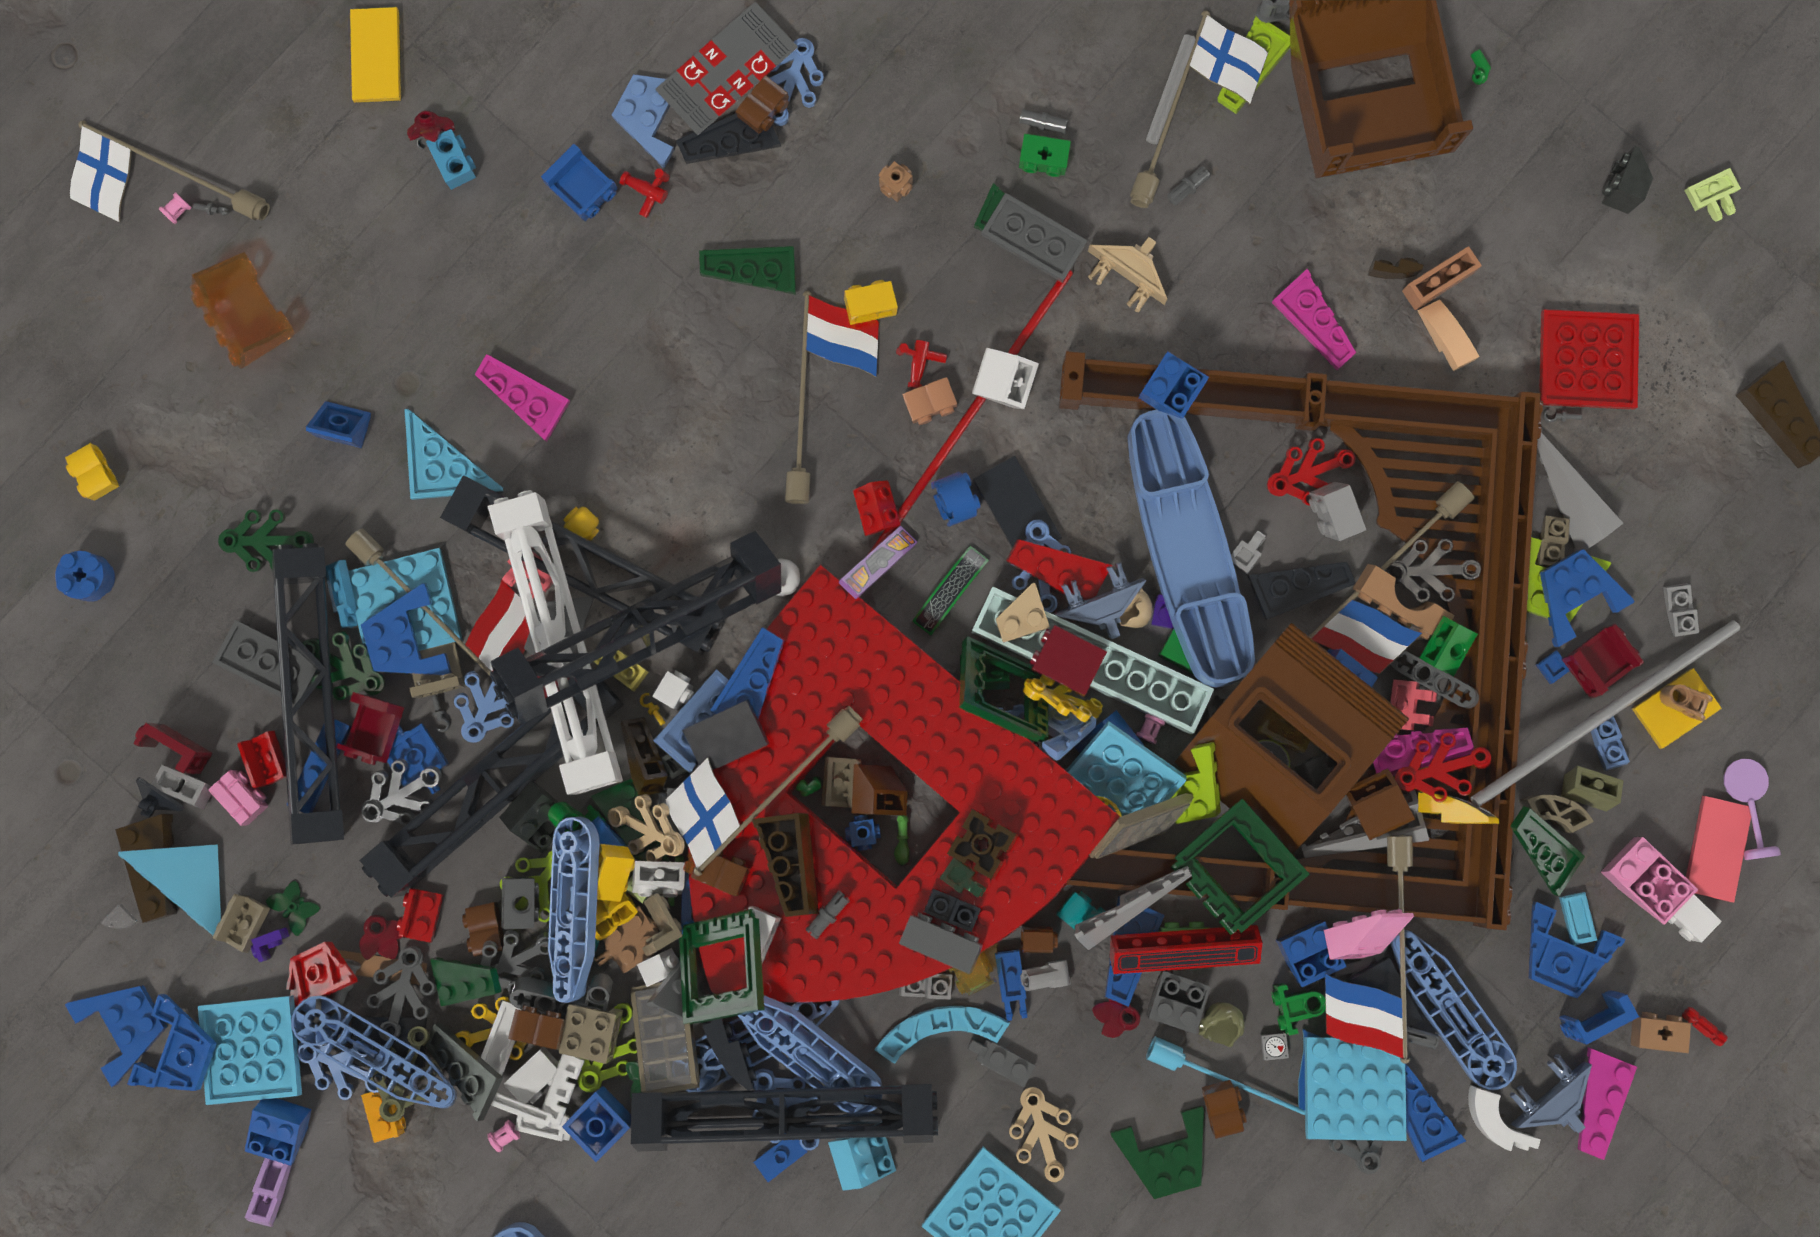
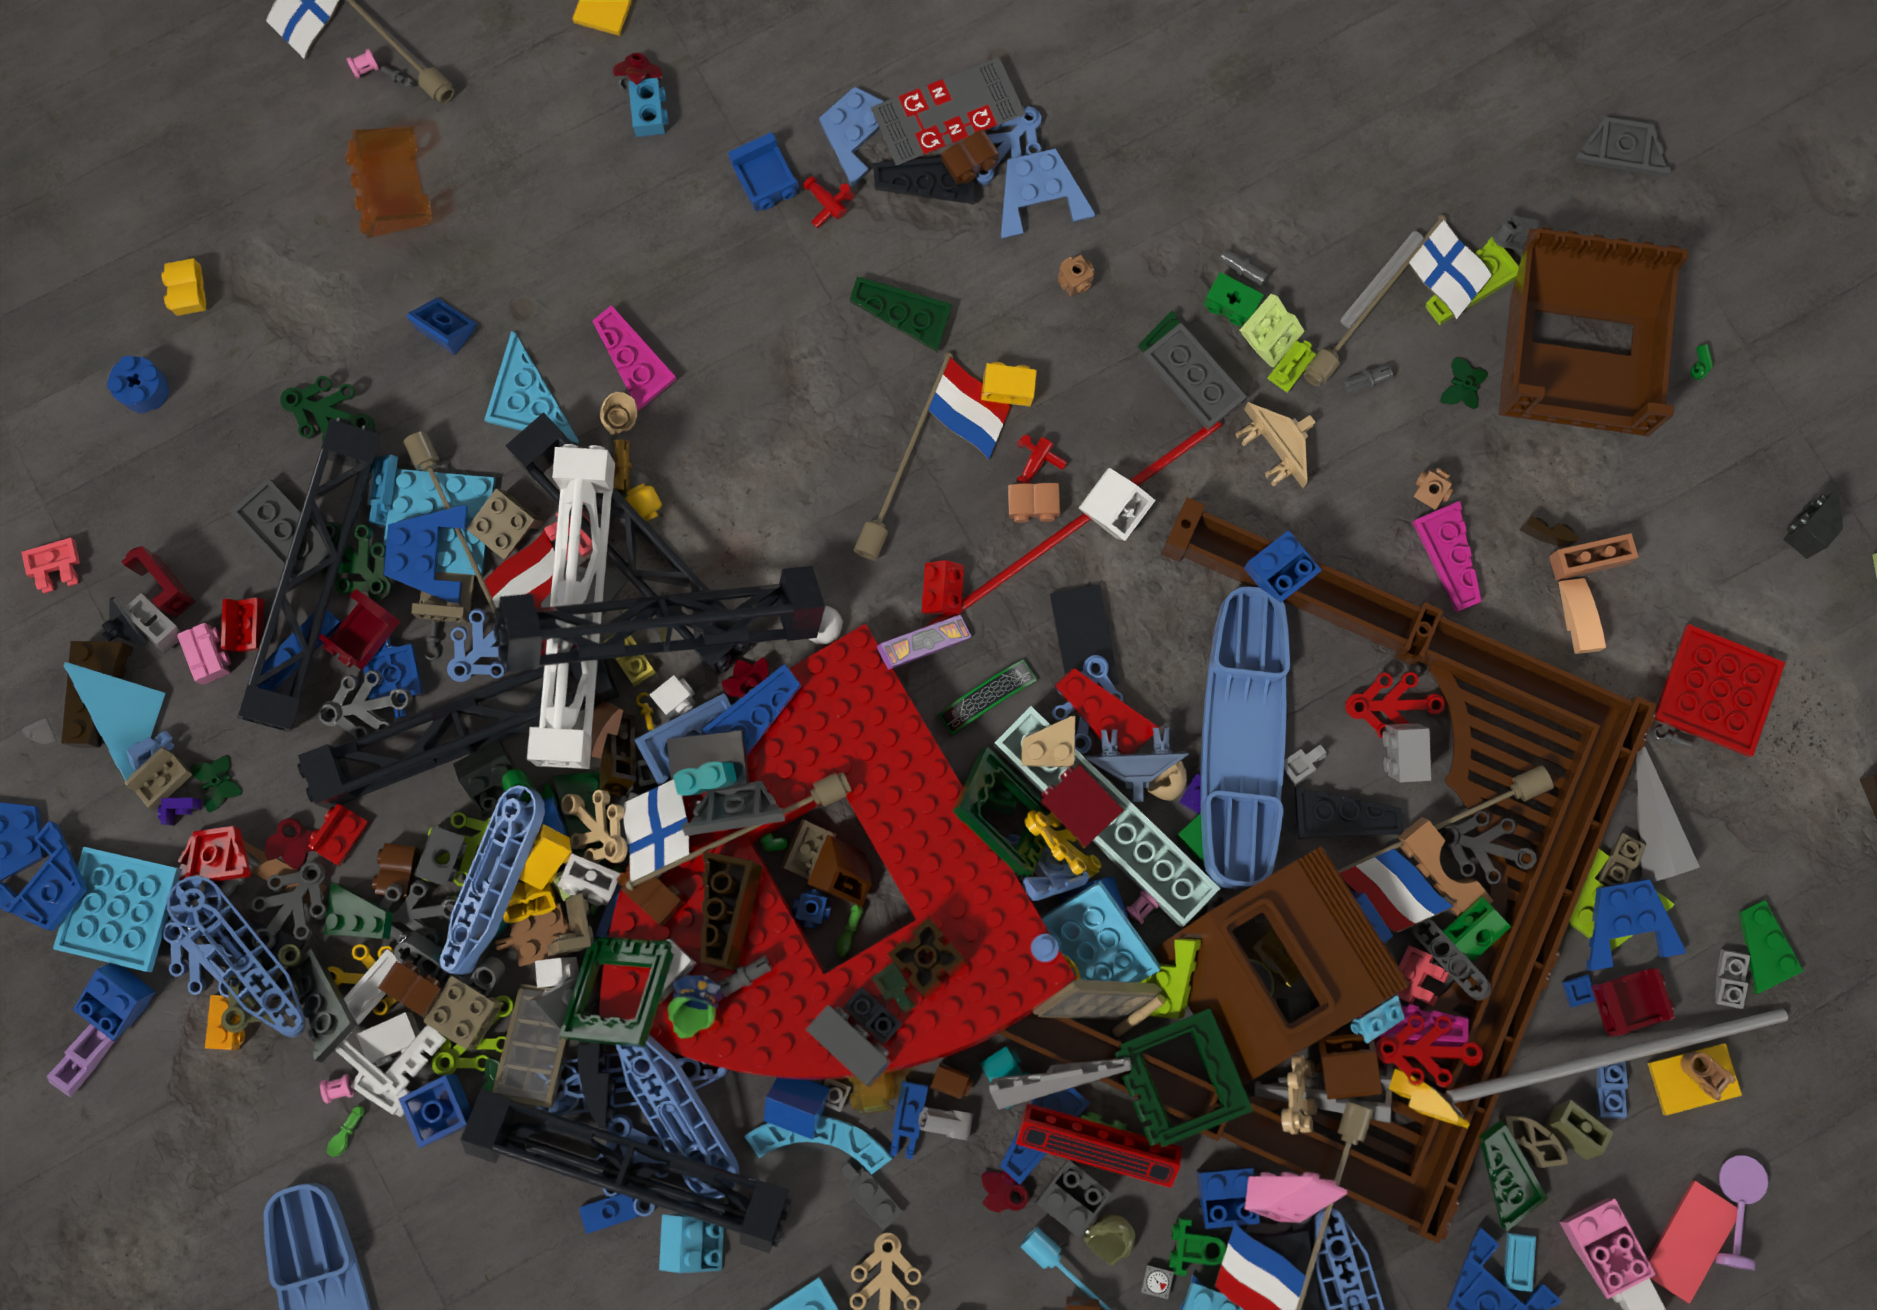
camera: 15 degrees right, 5 degrees down
(67, 760) = (49, 558): none -> coral plate
(218, 903) = (142, 751): none -> medium blue plate
(463, 586) = (503, 523): none -> dark tan bracket
(523, 1180) = (339, 1142): none -> bright green piece
(529, 450) = (618, 412): none -> tan hair
(551, 496) = (622, 465): none -> pearl gold pin
(621, 732) = (605, 720): none -> nougat slope
(729, 754) = (702, 779): none -> teal brick
(730, 649) = (746, 677): none -> dark red plate
(765, 771) = (734, 808): none -> dark grey wing
(792, 956) = (693, 1004): none -> piece
(830, 105) = (1038, 180): none -> medium blue wing
(911, 1008) = (796, 1105): none -> blue slope
(955, 498) = (1024, 606): blue brick -> none
(1082, 799) = (1045, 948): none -> medium blue plate
(1088, 171) = (1272, 330): none -> yellowish green slope
(1117, 196) = (1292, 365): none -> lime hinge
(1181, 824) = (1139, 1015): none -> tan piece
(1277, 160) = (1466, 385): none -> dark green piece
(1283, 272) = (1431, 496): none -> medium nougat brick
(1345, 869) = (1292, 1118): none -> tan plant
(1391, 756) = (1379, 1019): none -> medium azure hinge
(1706, 574) = (1769, 951): none -> green wing

